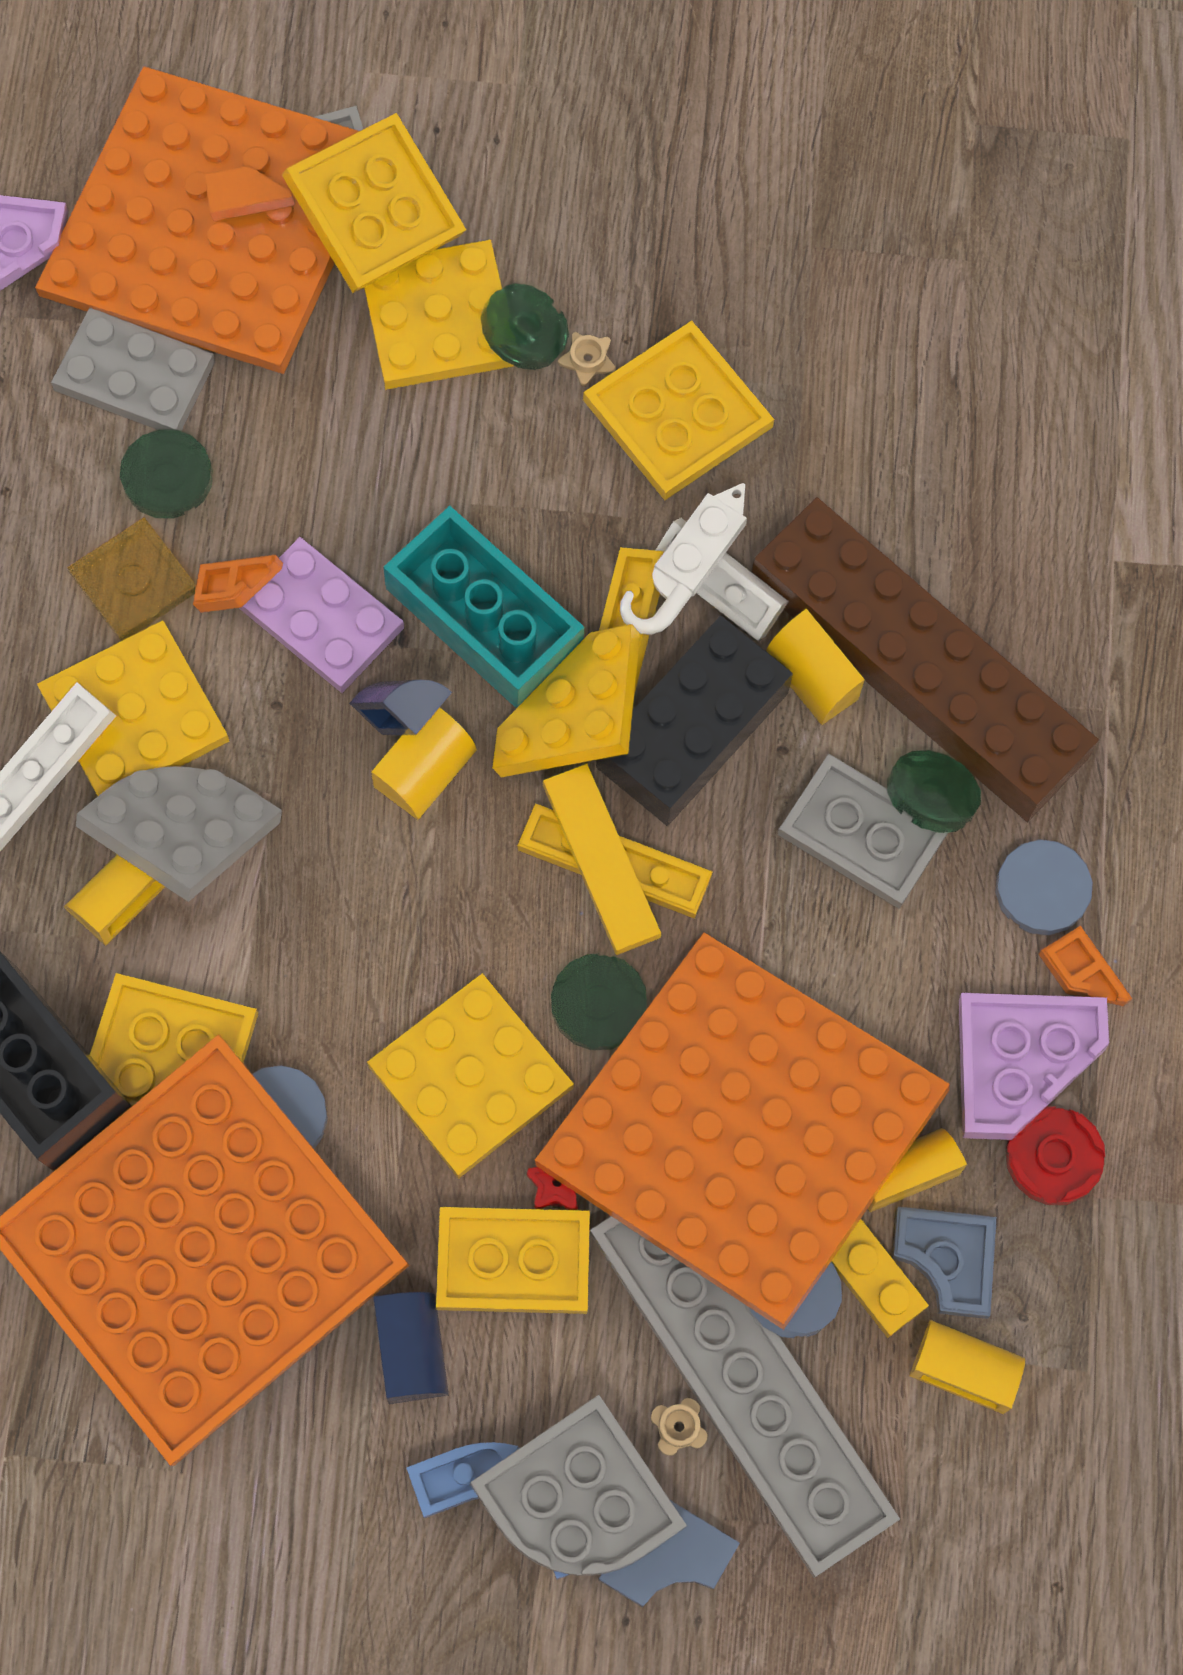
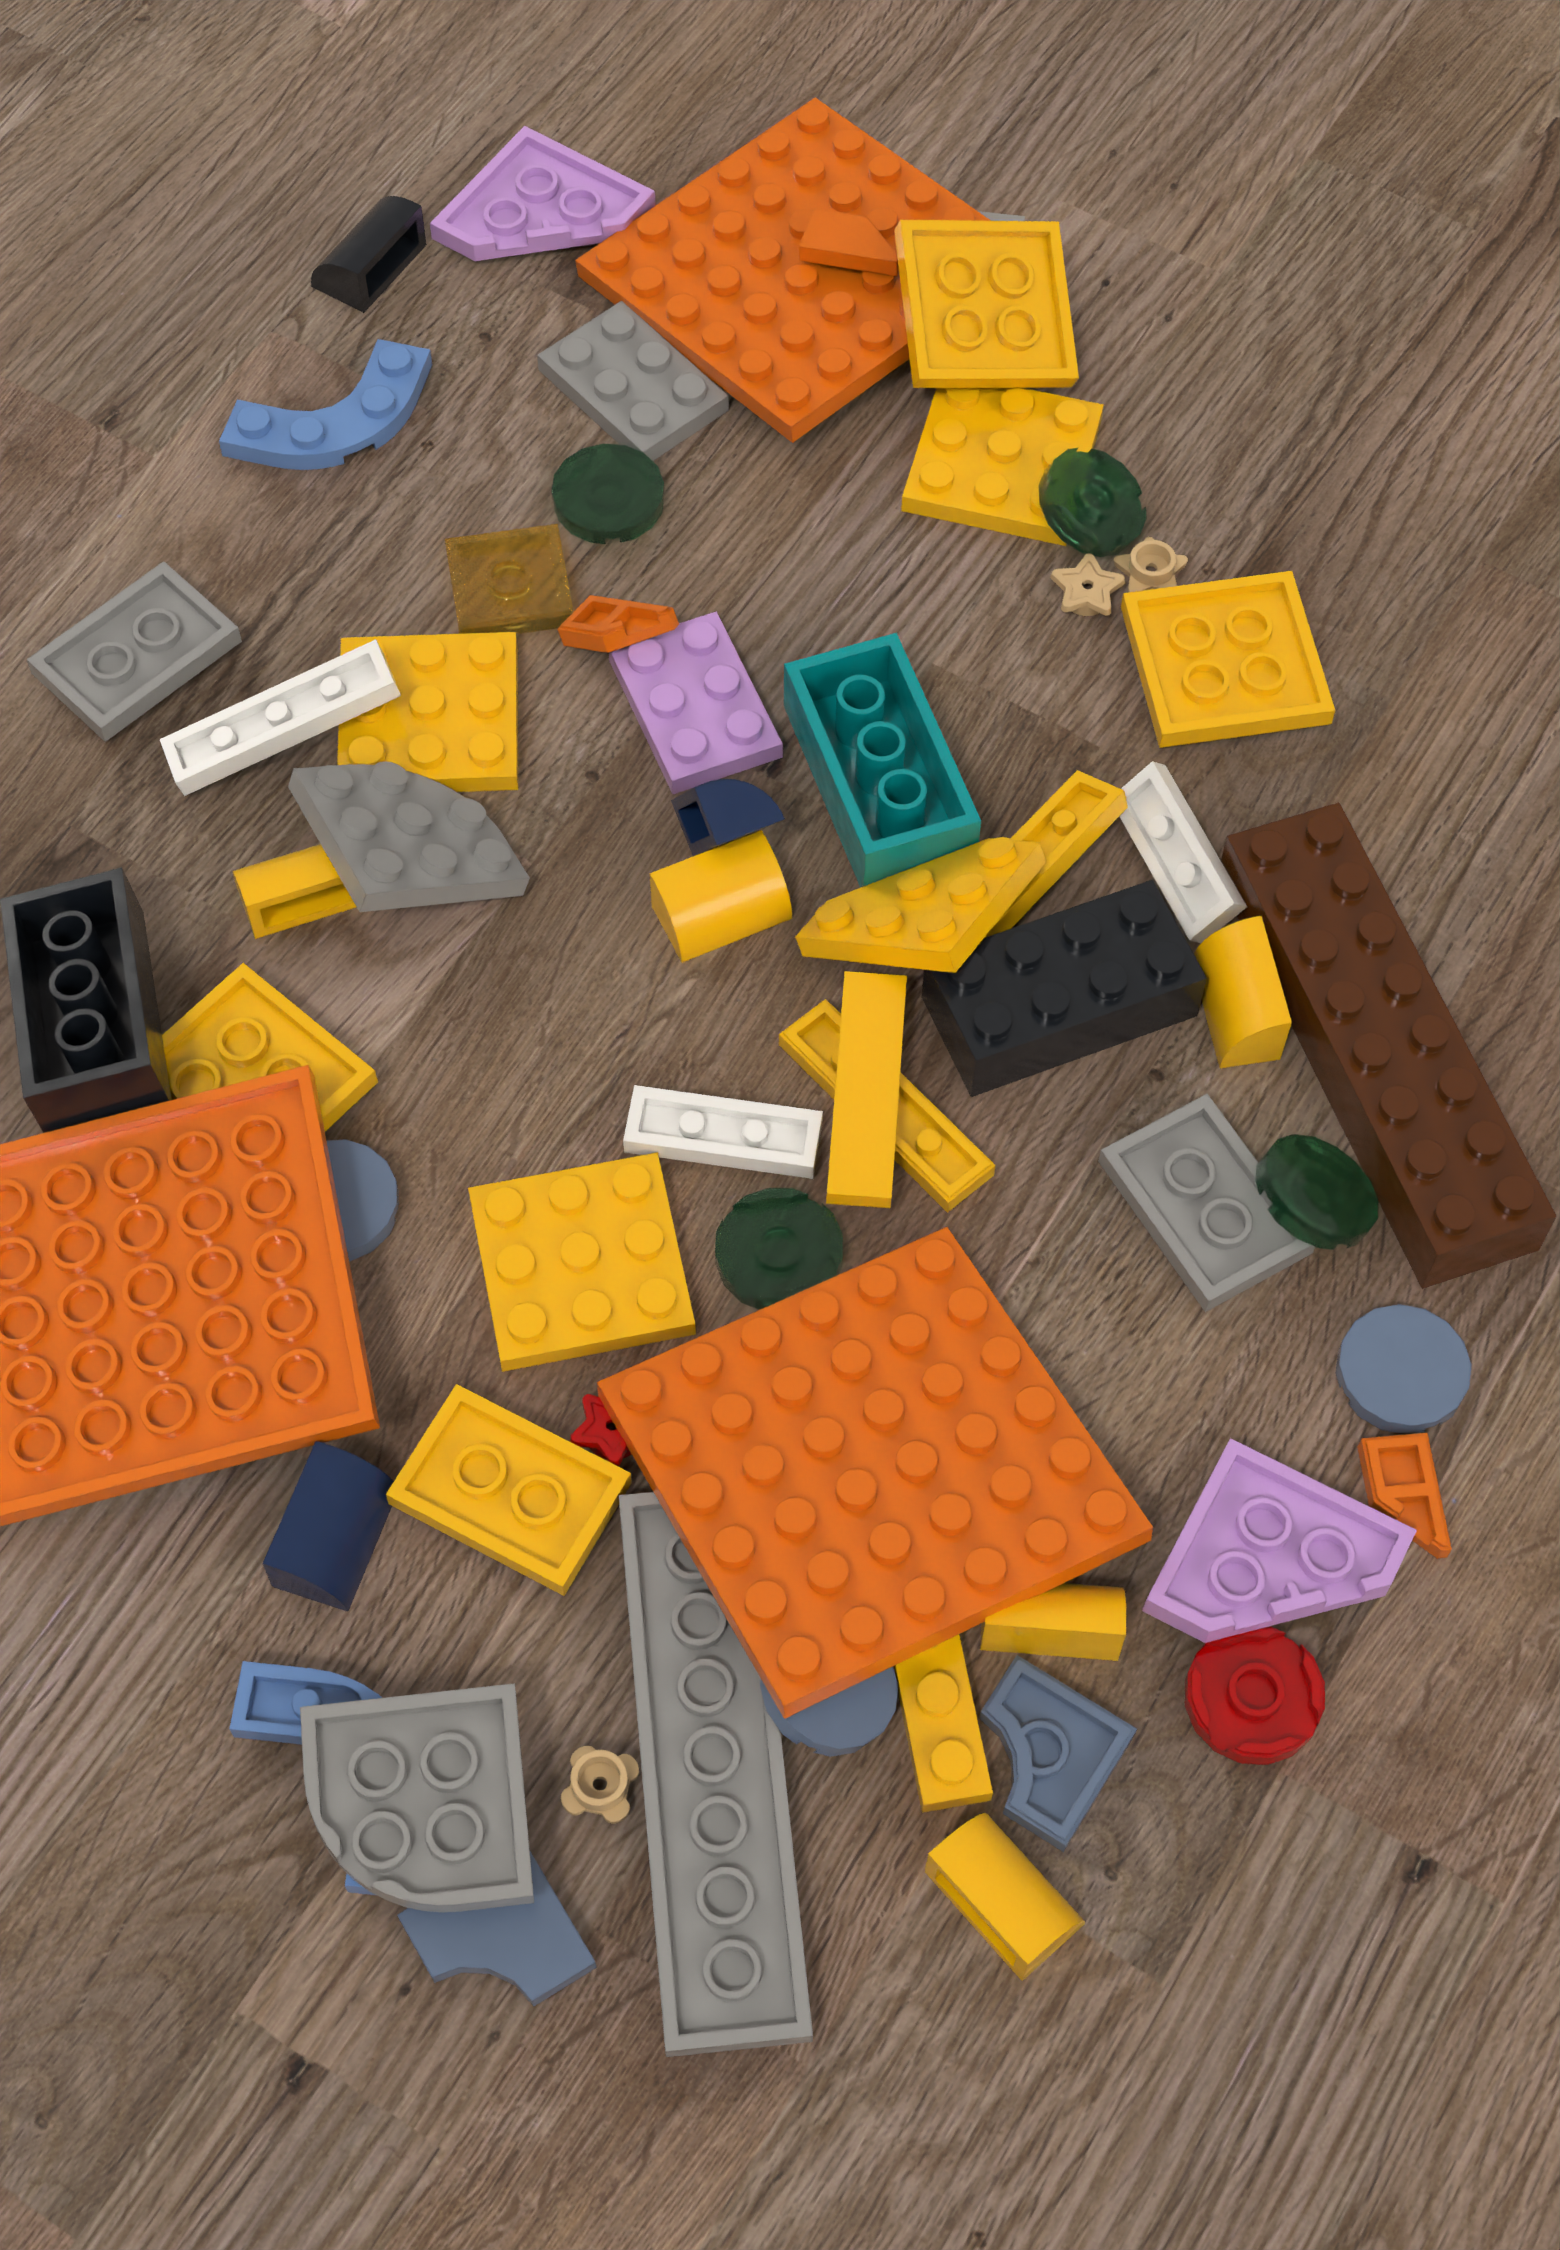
camera: 30 degrees right, 10 degrees down
(518, 936) = (723, 1131): none -> white plate
(548, 406) = (1087, 601): none -> tan plate
(691, 557) = (1152, 804): white plate -> none

